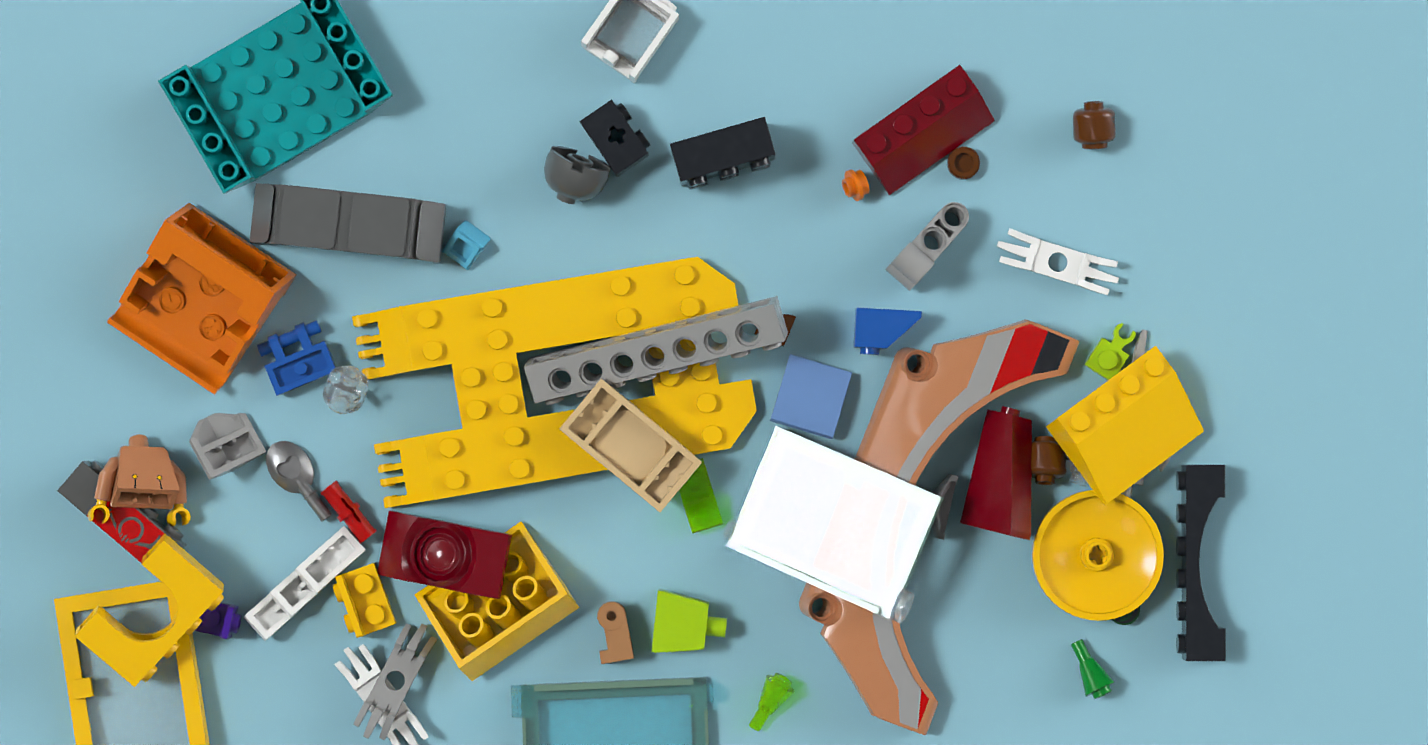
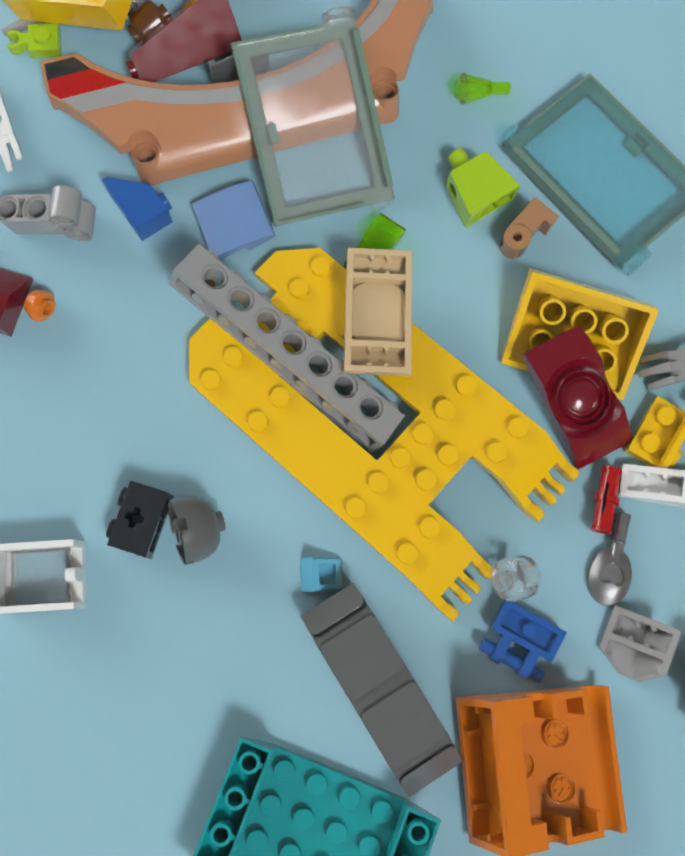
camera: 135 degrees left, 10 degrees down
(723, 153) = (85, 418): black brick -> none

